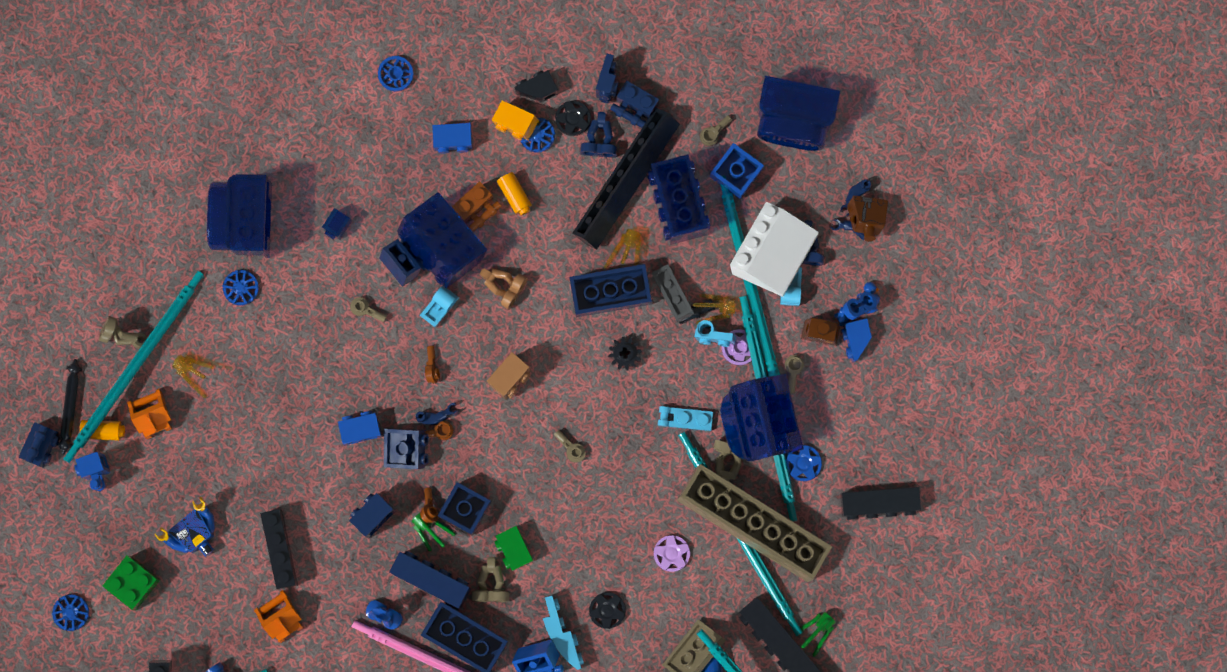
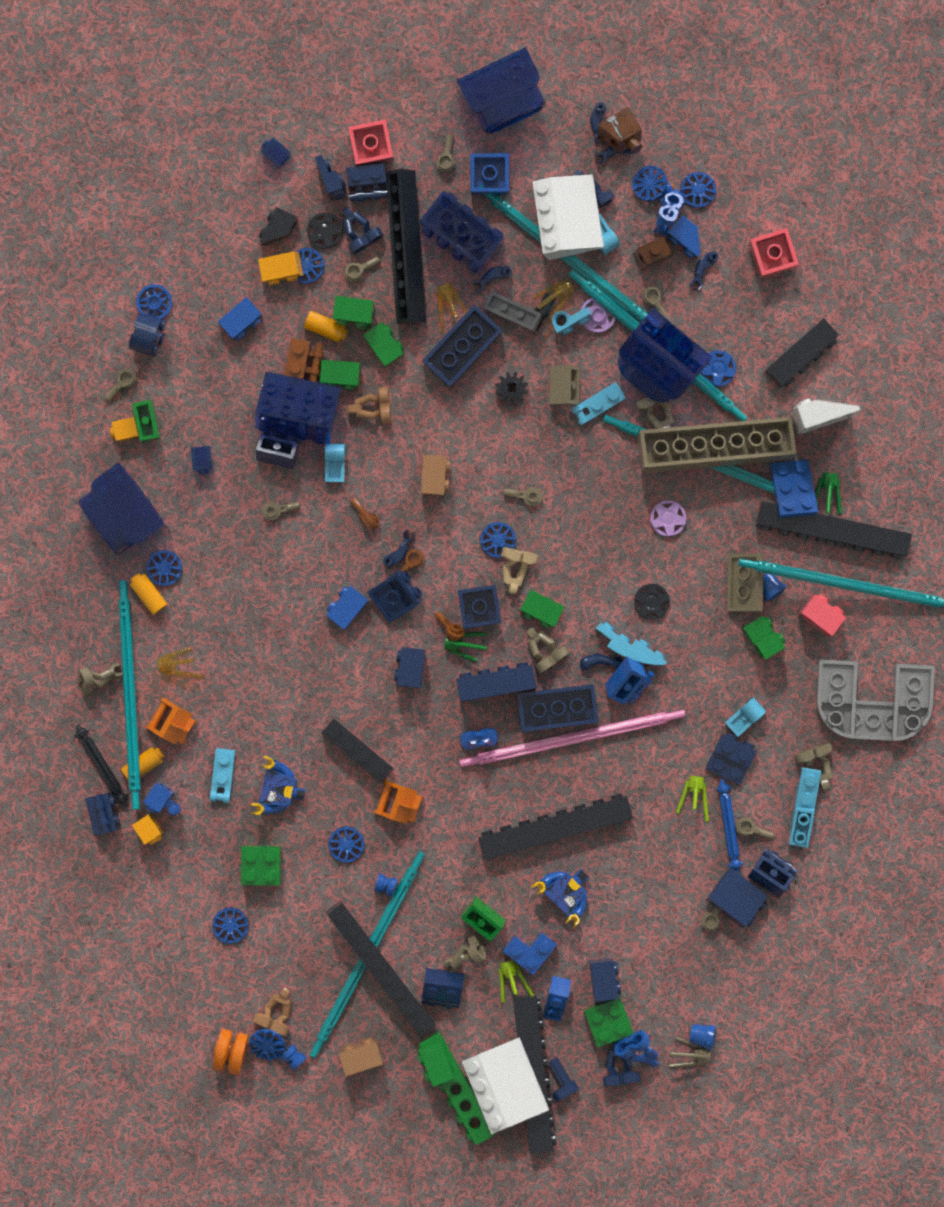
camera: 40 degrees left, 5 degrees up
(64, 485) = (148, 829): none -> light orange brick
(158, 487) = (222, 775): none -> medium azure plate
(211, 297) = (148, 593): none -> light orange brick
(212, 618) = (346, 844): none -> blue wheel
(294, 155) = (124, 429): none -> light orange brick
(315, 161) = (146, 421): none -> green brick
(326, 116) = (125, 378): none -> dark tan plate
(369, 94) = (147, 335): none -> dark blue brick
(497, 239) = (340, 374): none -> green brick
(522, 466) = (497, 539): none -> blue wheel
(524, 489) = (513, 556): none -> tan piece
(526, 622) = (598, 658): none -> dark blue arm
(545, 197) = (353, 311): none -> green brick
(549, 242) = (383, 344): none -> green brick
(571, 168) = (354, 271): none -> dark tan plate
(580, 28) = (275, 152): none -> clear blue brick
(661, 76) = (371, 143): none -> coral brick
(668, 383) = (564, 385): none -> dark tan brick
(680, 251) = (493, 273): none -> dark blue arm
(790, 606) = (793, 488): none -> blue plate
(852, 371) = (703, 264): none -> dark blue arm
(853, 560) = (817, 414): none -> white slope
(860, 274) = (650, 183): none -> blue wheel
(895, 308) = (698, 189): none -> blue wheel
(917, 404) = (773, 253): none -> coral brick

